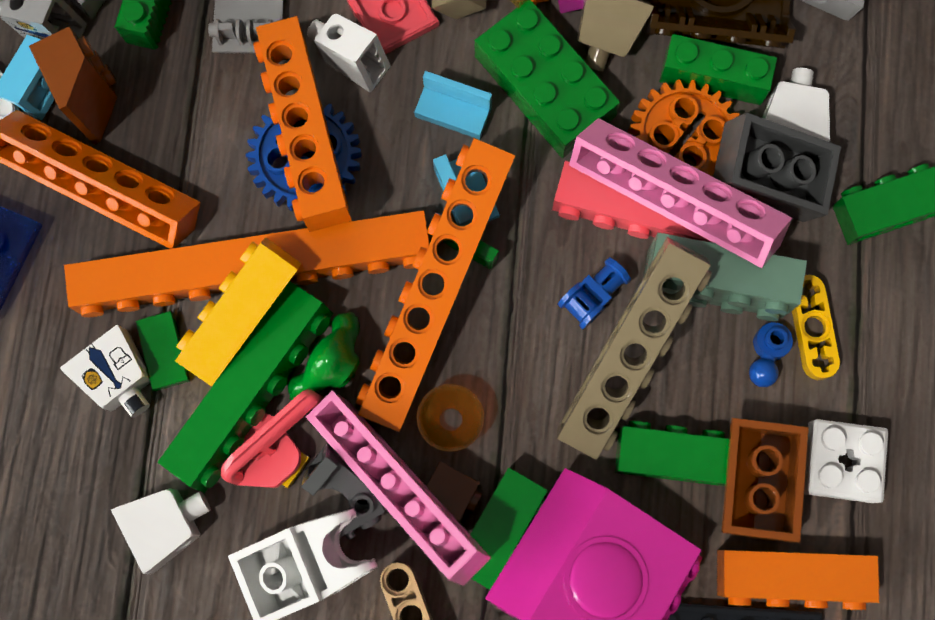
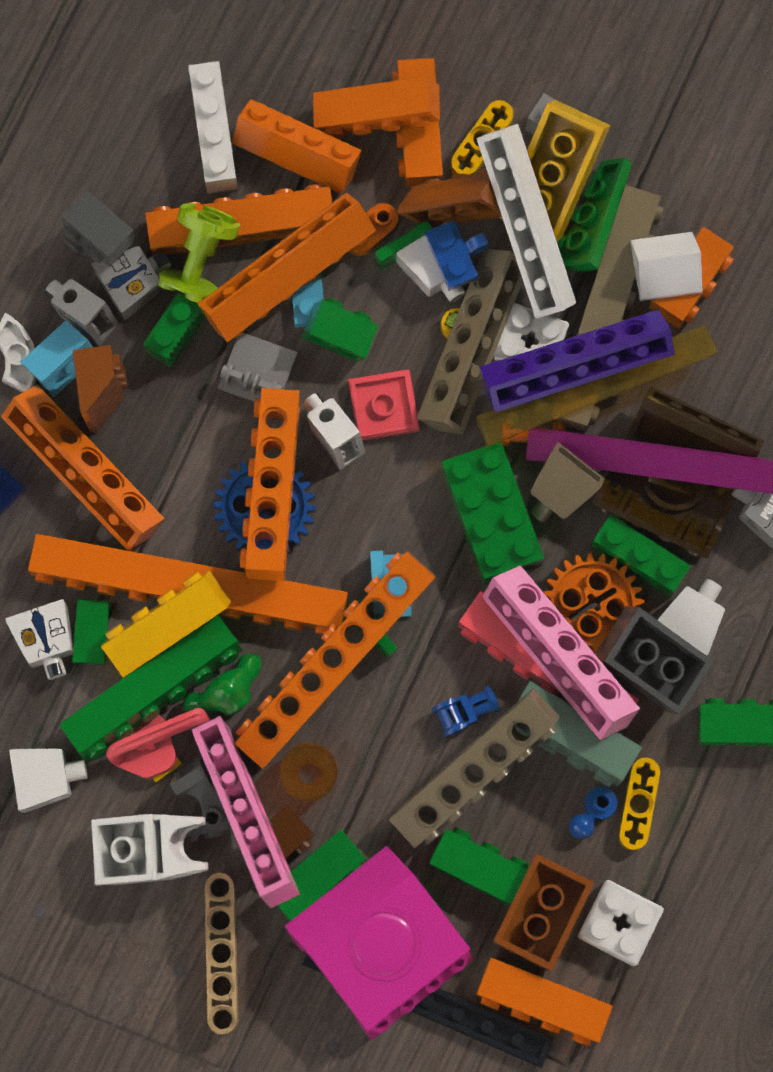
camera: 15 degrees right, 0 degrees up
(453, 105) = (405, 509): medium azure panel -> none

